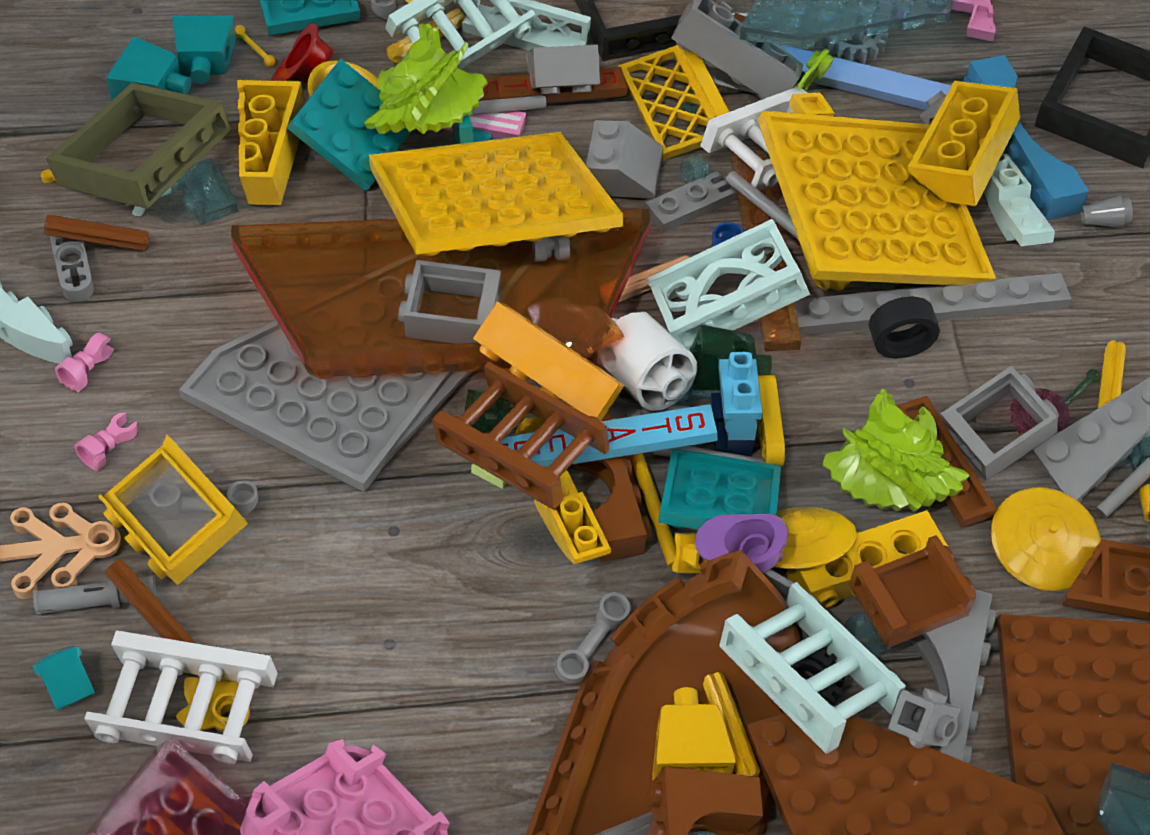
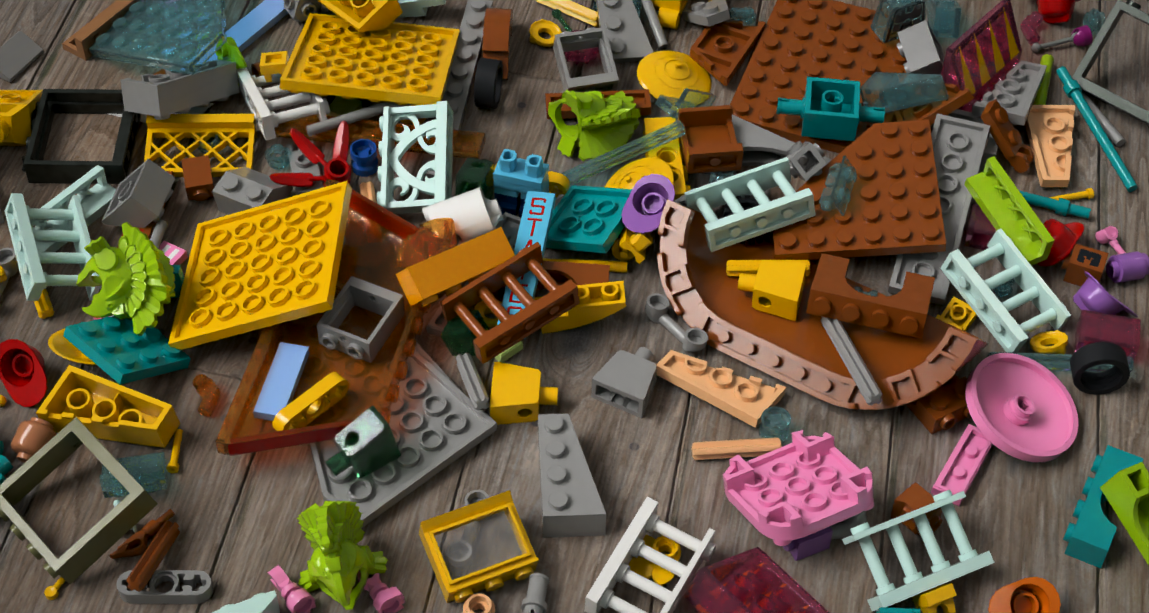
camera: 70 degrees left, 5 degrees down
(122, 369) = (336, 555): none -> lime piece
(127, 220) = (141, 538): none -> dark orange hand
(145, 602) = (561, 580): dark orange axle -> none
(219, 89) = (31, 437): none -> nougat head
(225, 218) = (173, 466): none -> yellow piece
(270, 359) = (364, 445): none -> clear green torso
(299, 572) = (567, 487): none -> light grey wedge
(316, 295) = (312, 403): none -> yellow beam
(336, 212) = (208, 392): none -> clear orange arm
(345, 263) = (281, 380): none -> light blue tile
(402, 446) = (472, 381): none -> light grey axle
(413, 758) = (731, 448): none -> light nougat axle
(415, 494) = (518, 394): none -> yellow torso
(460, 785) = (775, 417): none -> clear light blue wheel
(477, 607) = (626, 381): none -> light grey torso
(503, 729) = (720, 387): none -> light nougat wing
(623, 104) = (198, 178): none -> dark orange brick
(677, 219) = (335, 169): none -> red plant
(851, 504) = (625, 152): none -> clear light blue axle
(882, 770) = (839, 186): none -> clear light blue hinge
(977, 555) = (688, 99): none -> clear light blue panel
(994, 309) = (497, 36): none -> dark orange arch
(1051, 360) = (543, 26): none -> yellow piece
(1053, 735) = (830, 109): none -> teal brick

